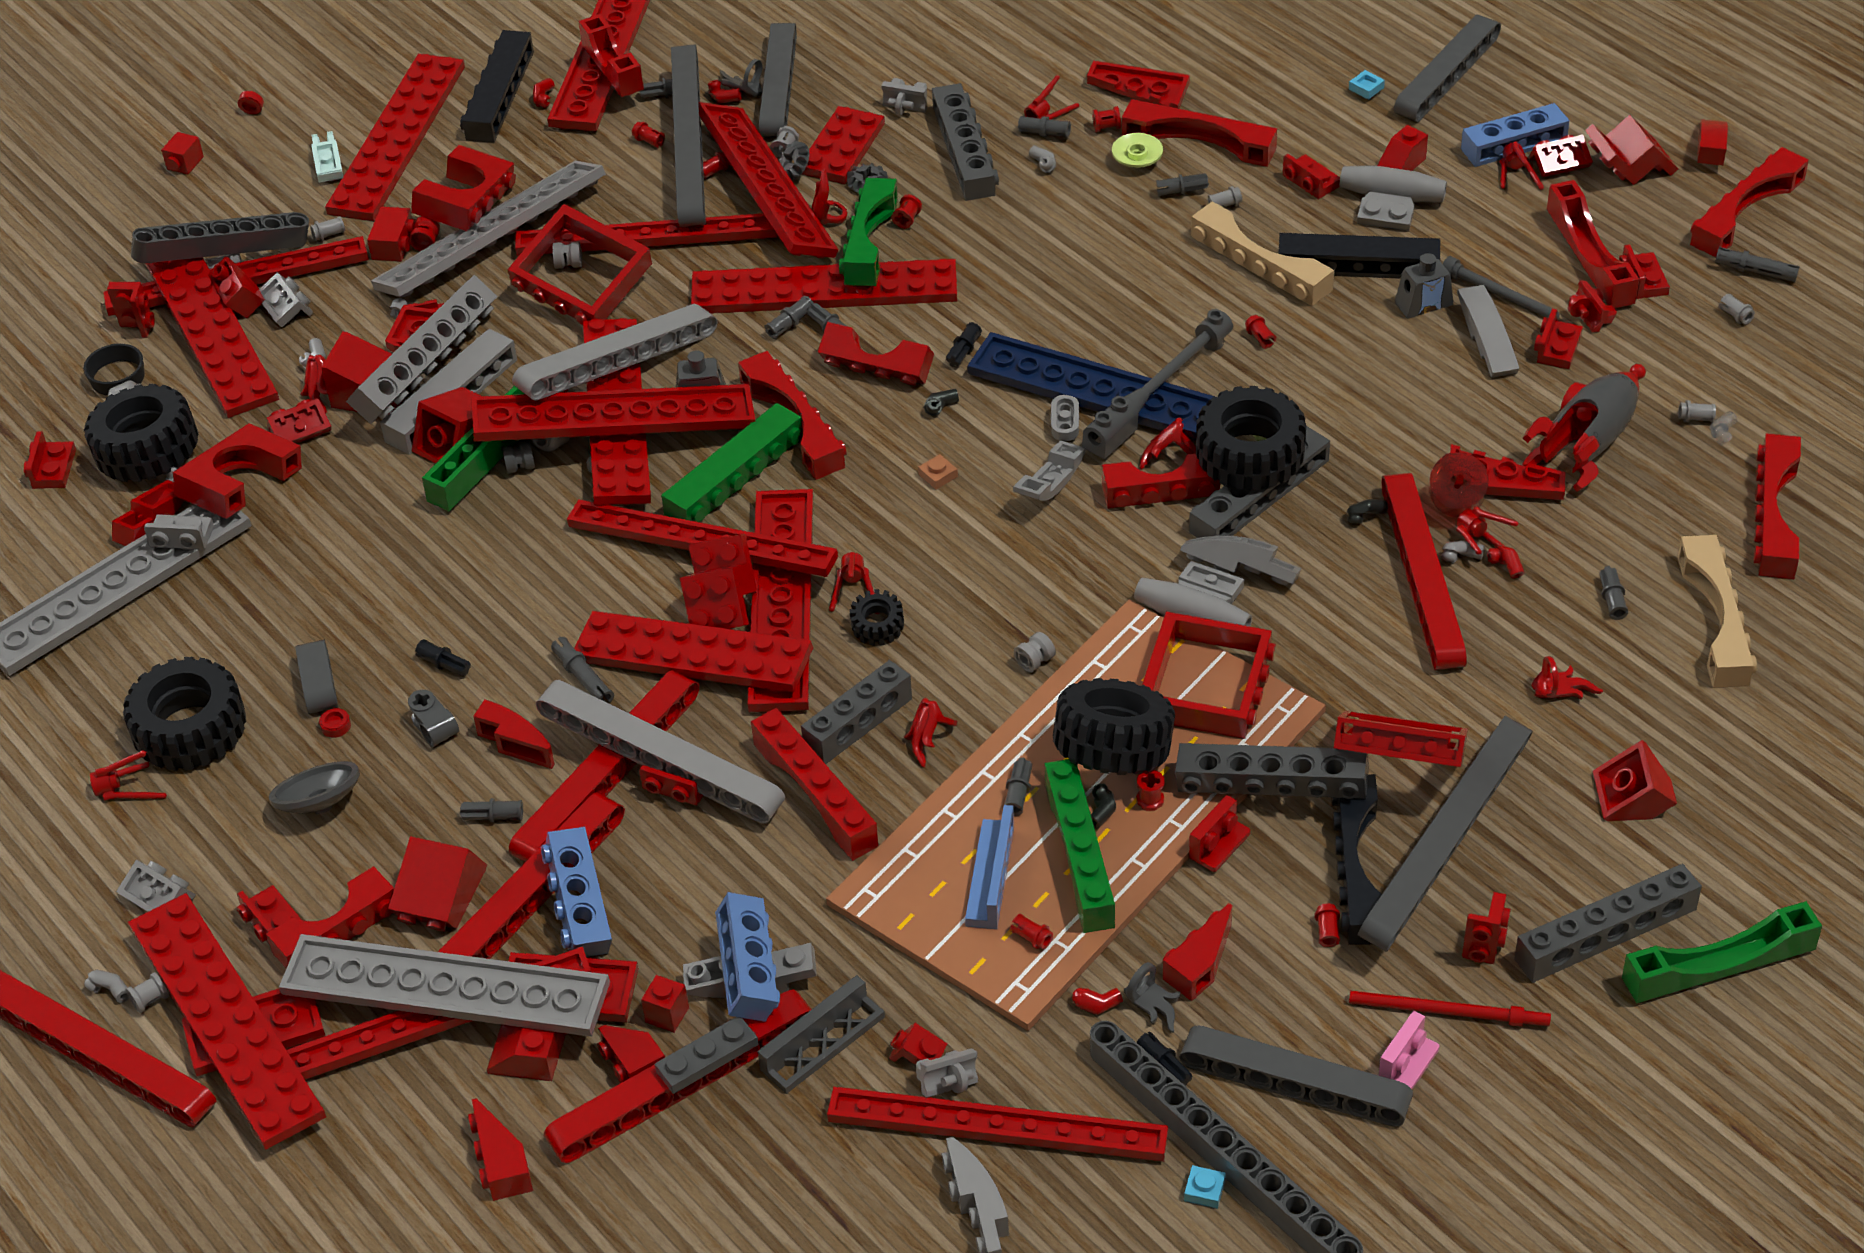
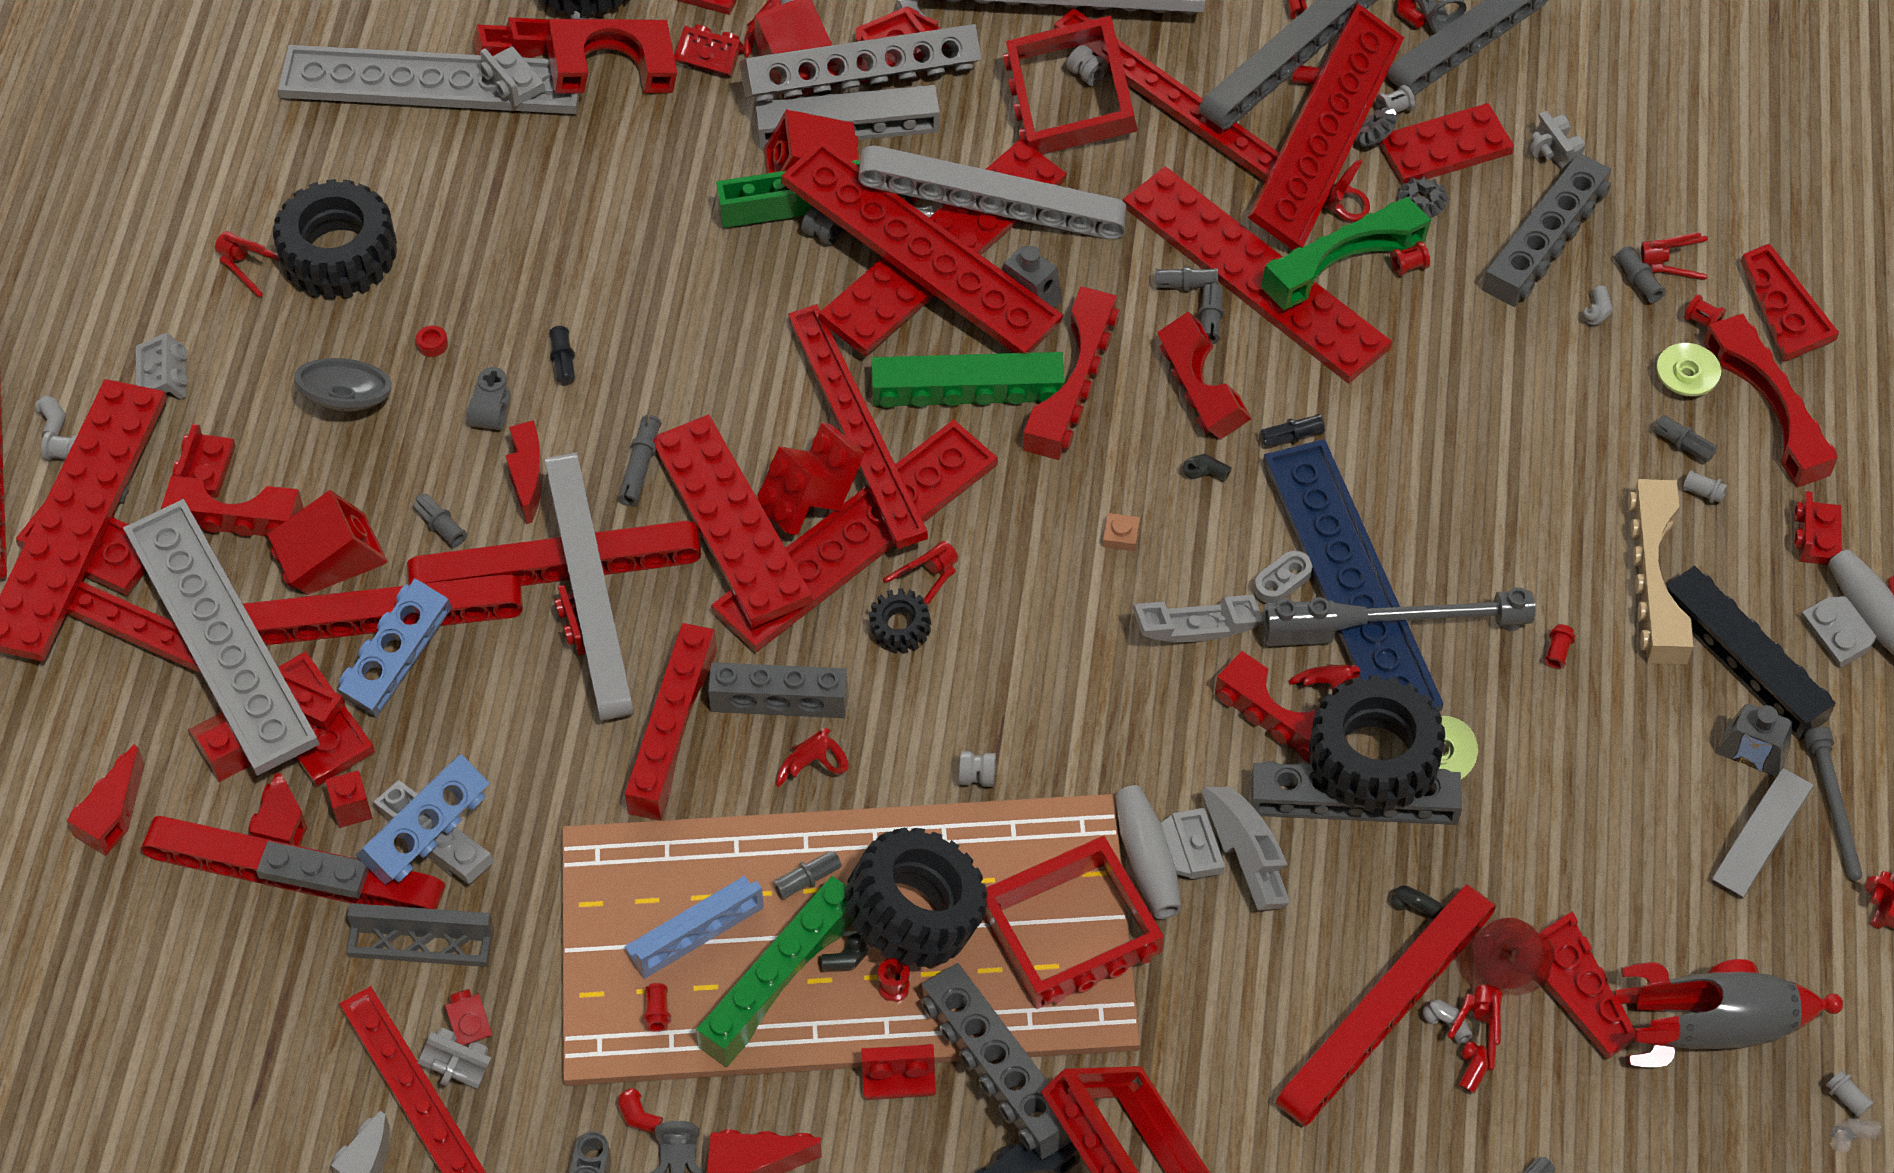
camera: 45 degrees right, 10 degrees up
(316, 676) = (460, 289): dark grey beam -> none
(1558, 342) = (1818, 903): red bracket -> none

